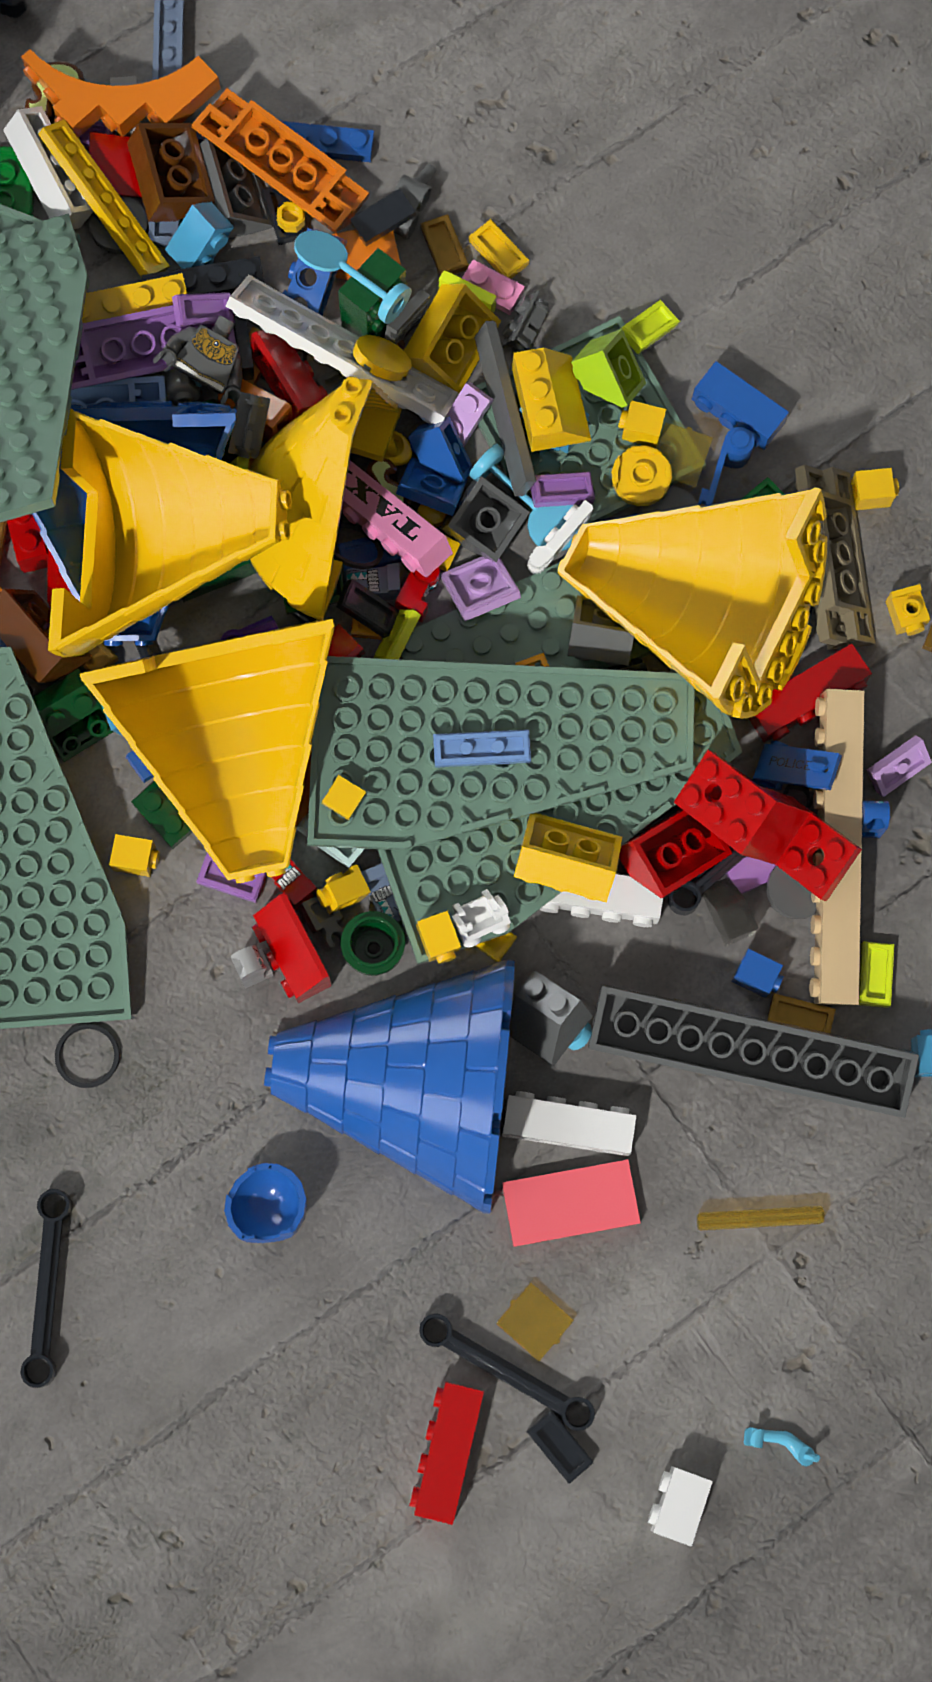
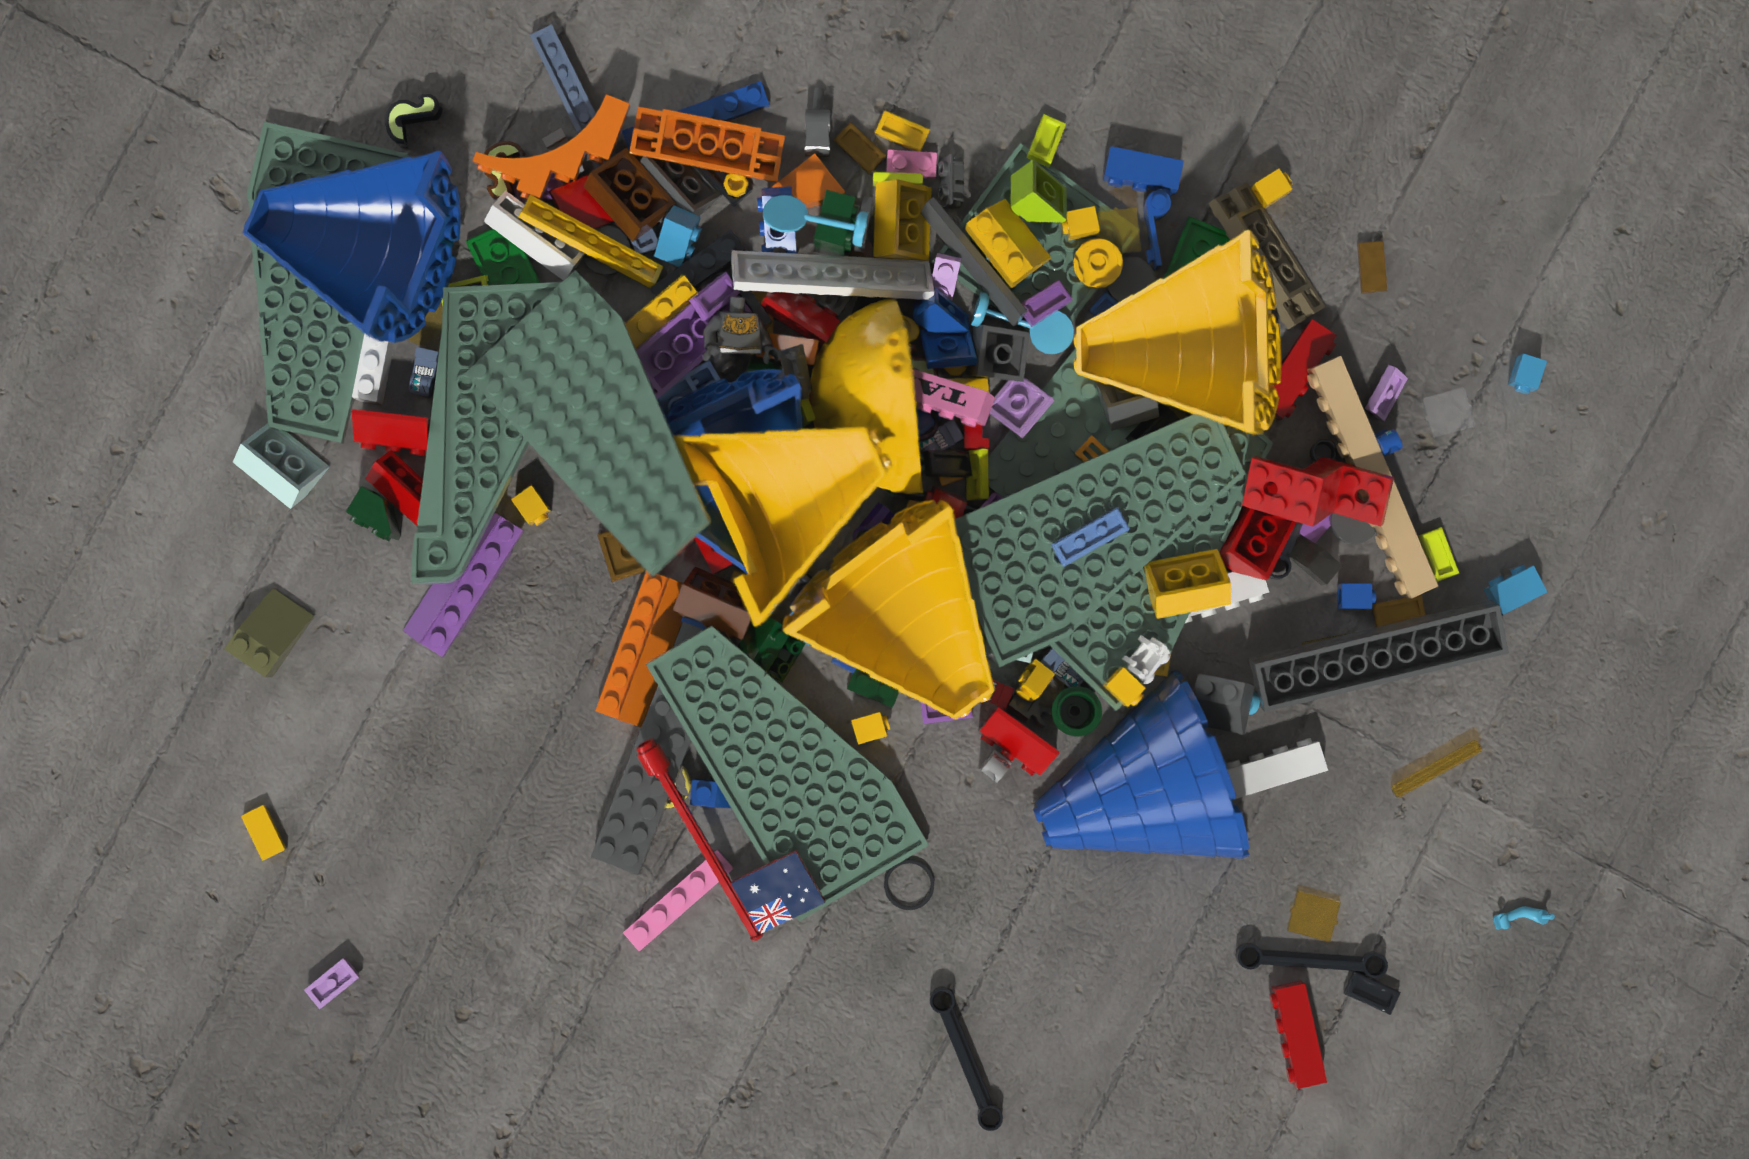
camera: 25 degrees left, 10 degrees up
(266, 1204) = (1091, 929): blue cylinder -> none
(343, 797) = (1010, 621): yellow tile -> none
(382, 217) = (808, 153): black tile -> none
(383, 357) = (864, 267): yellow tile -> none
(559, 538) = (1062, 343): white hinge -> none
(570, 1203) = (1300, 822): coral tile -> none
(680, 1505) = (1473, 992): white brick -> none
(795, 766) = (1315, 434): blue door -> none
(903, 620) = (1330, 271): yellow brick -> none

